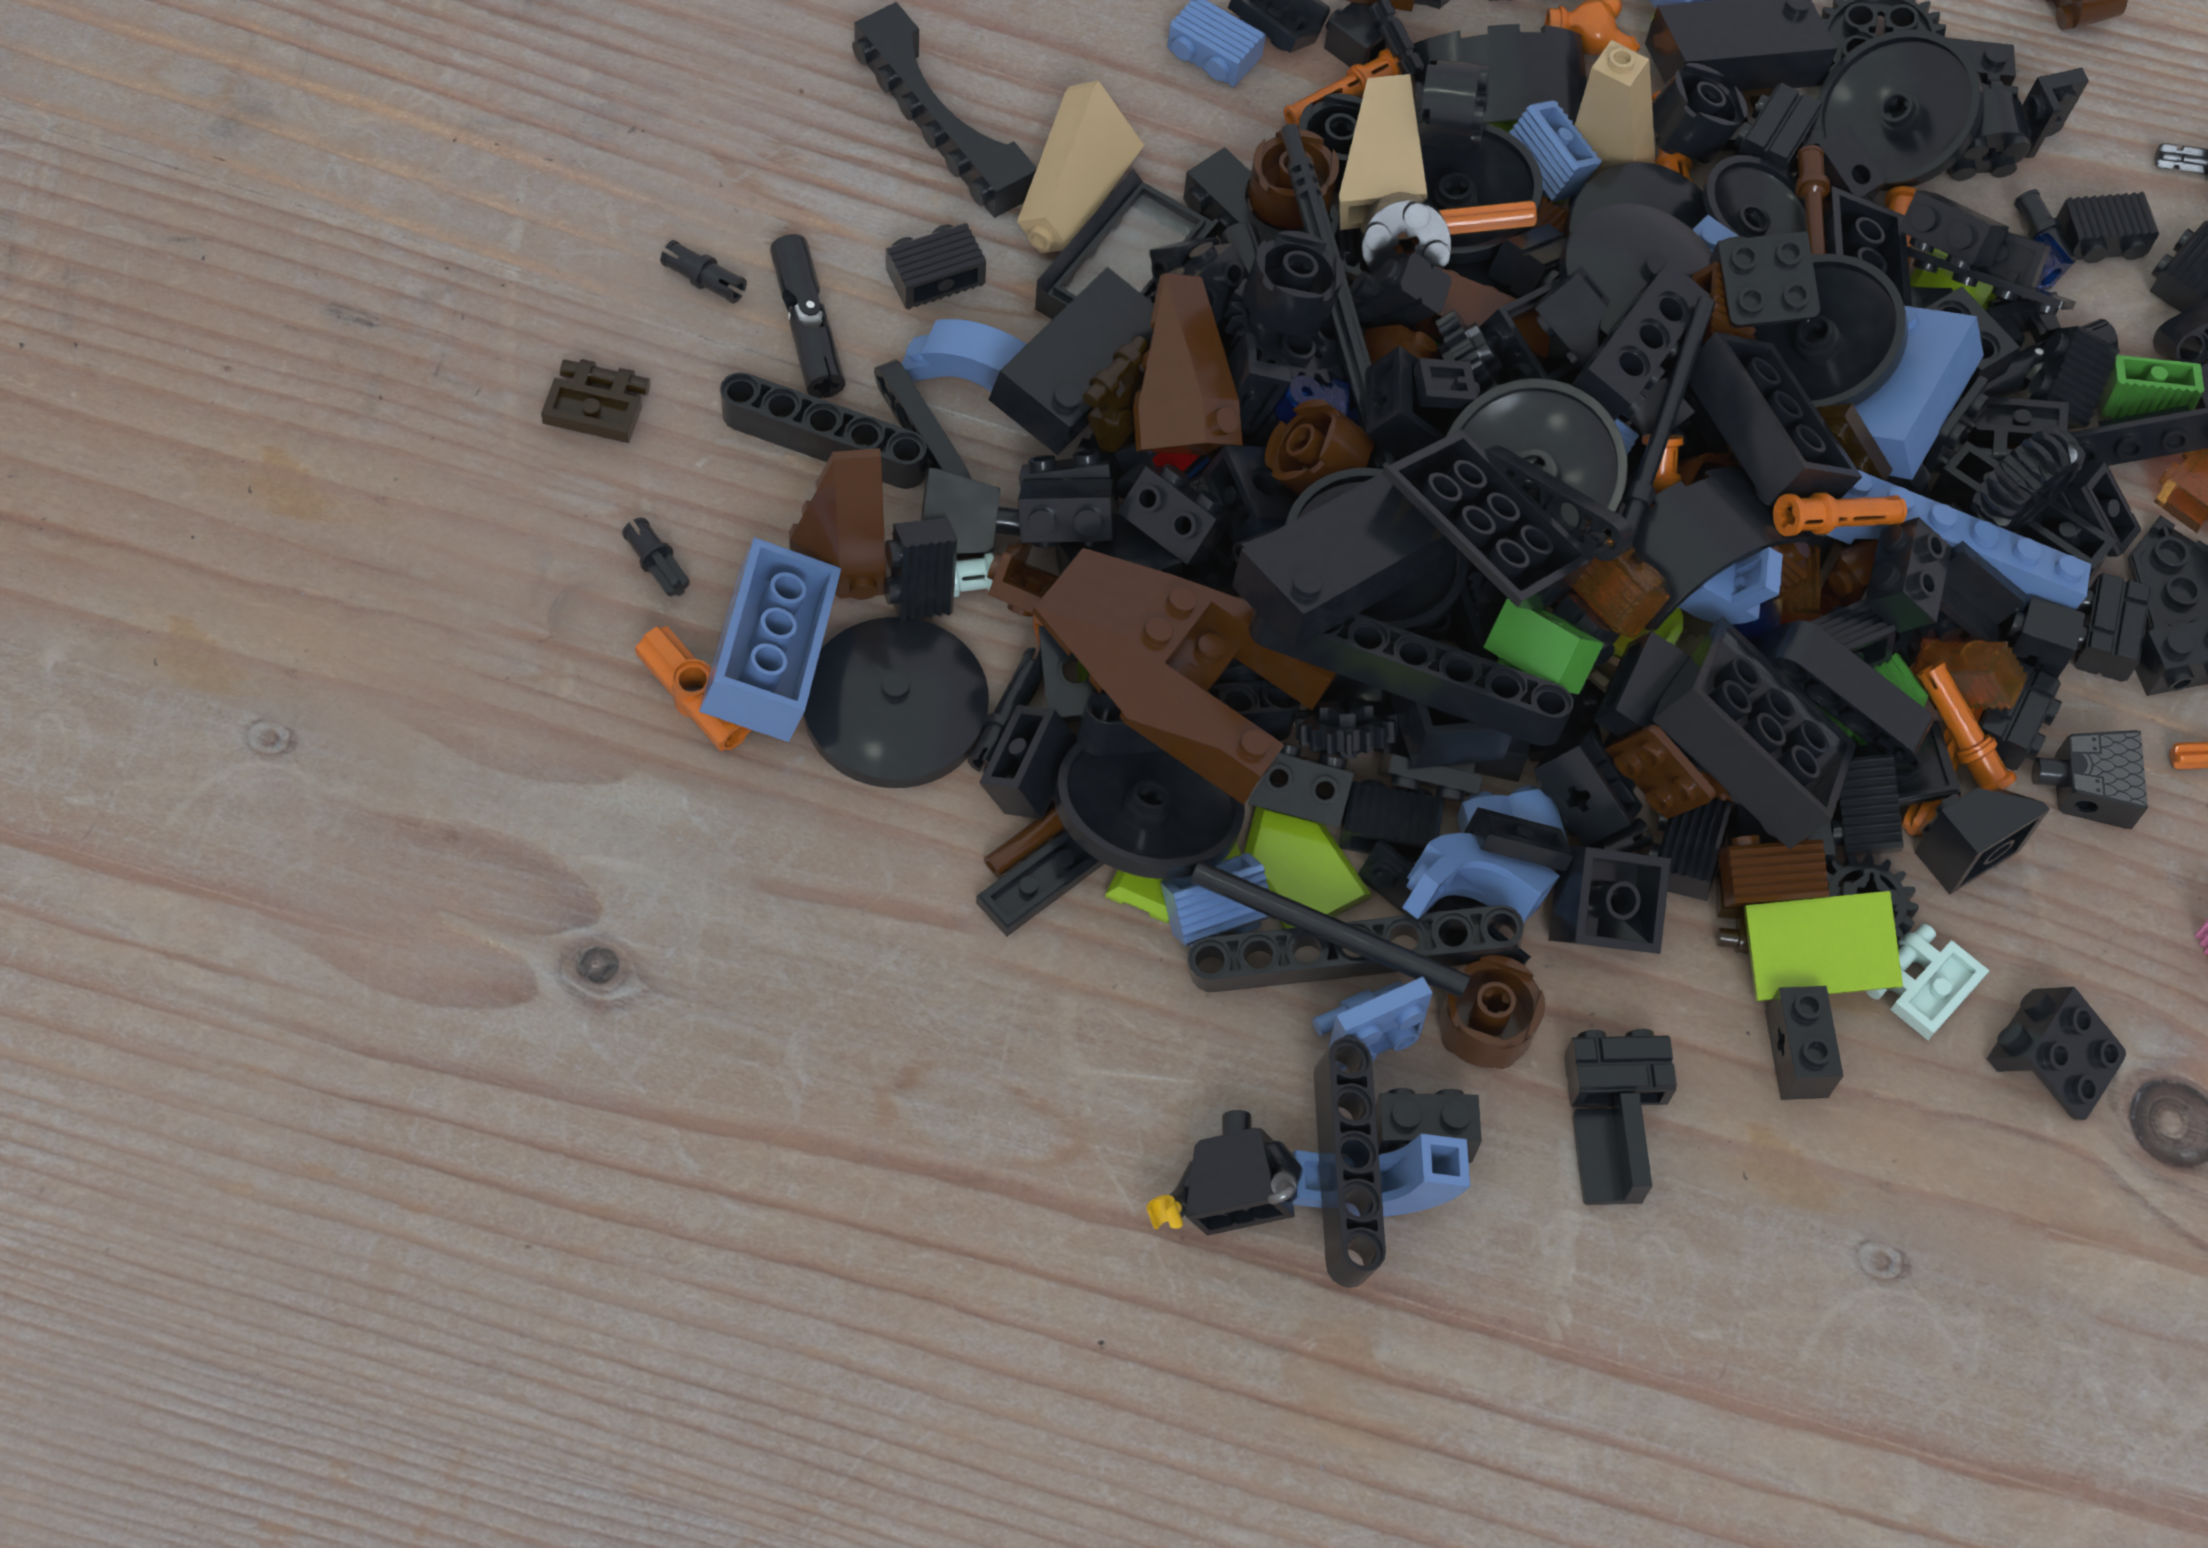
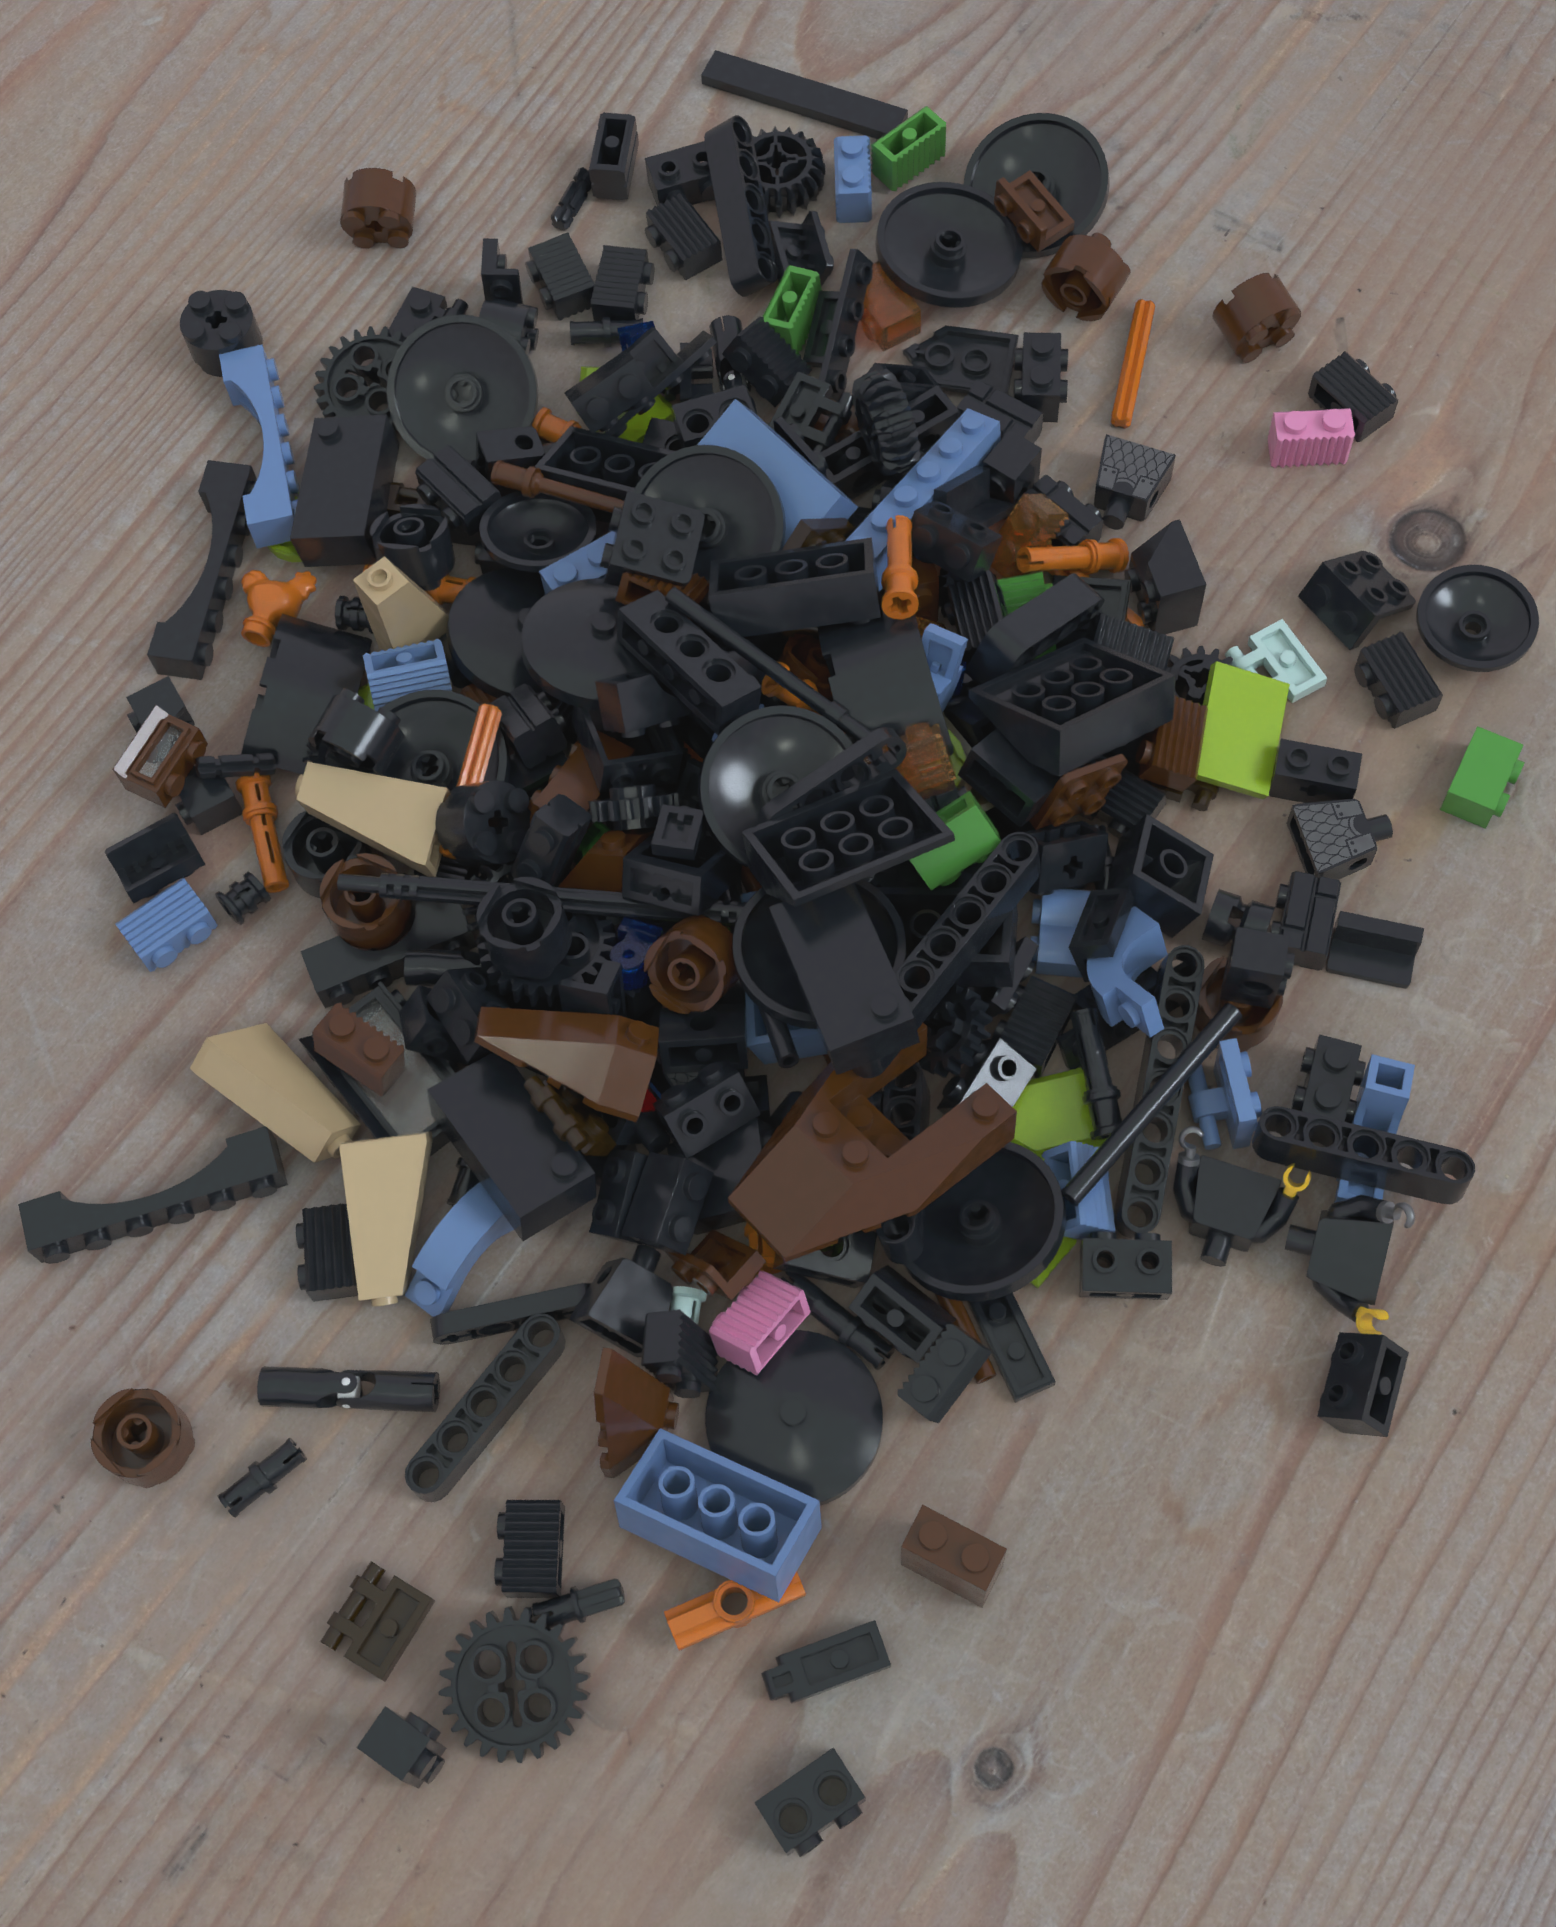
camera: 60 degrees left, 5 degrees up
(481, 440) = (404, 1747): none -> black brick
(528, 793) = (803, 1791): none -> black brick
(566, 522) = (472, 1686): none -> black gear
(658, 786) = (827, 1664): none -> black hinge
(698, 503) = (531, 1549): none -> black brick
(710, 163) = (118, 1444): none -> reddish brown brick
(787, 855) = (952, 1556): none -> reddish brown brick
(978, 812) = (944, 1373): none -> black brick
(979, 635) = (759, 1322): none -> bright pink brick
(986, 282) = (384, 1207): none -> tan slope
(1094, 1222) = (1363, 1384): none -> black brick
(1136, 214) = (359, 1049): none -> reddish brown brick
(1148, 962) = (1126, 1275): none -> black brick
(1258, 1052) = (1229, 1202): none -> black torso
(1267, 93) = (243, 897): none -> black bush
(1331, 893) = (1100, 1093): none -> black pin
(1516, 986) = (1256, 968): none -> black brick
(1587, 995) = (1229, 905): none -> black wheel
(1733, 1083) = (1336, 836): none -> torso
(1877, 1228) = (1482, 777): none -> bright green brick
(1964, 1112) = (1397, 680): none -> black brick
(2093, 167) = (562, 276): none -> black brick
(2094, 1157) = (1484, 602): none -> black dish

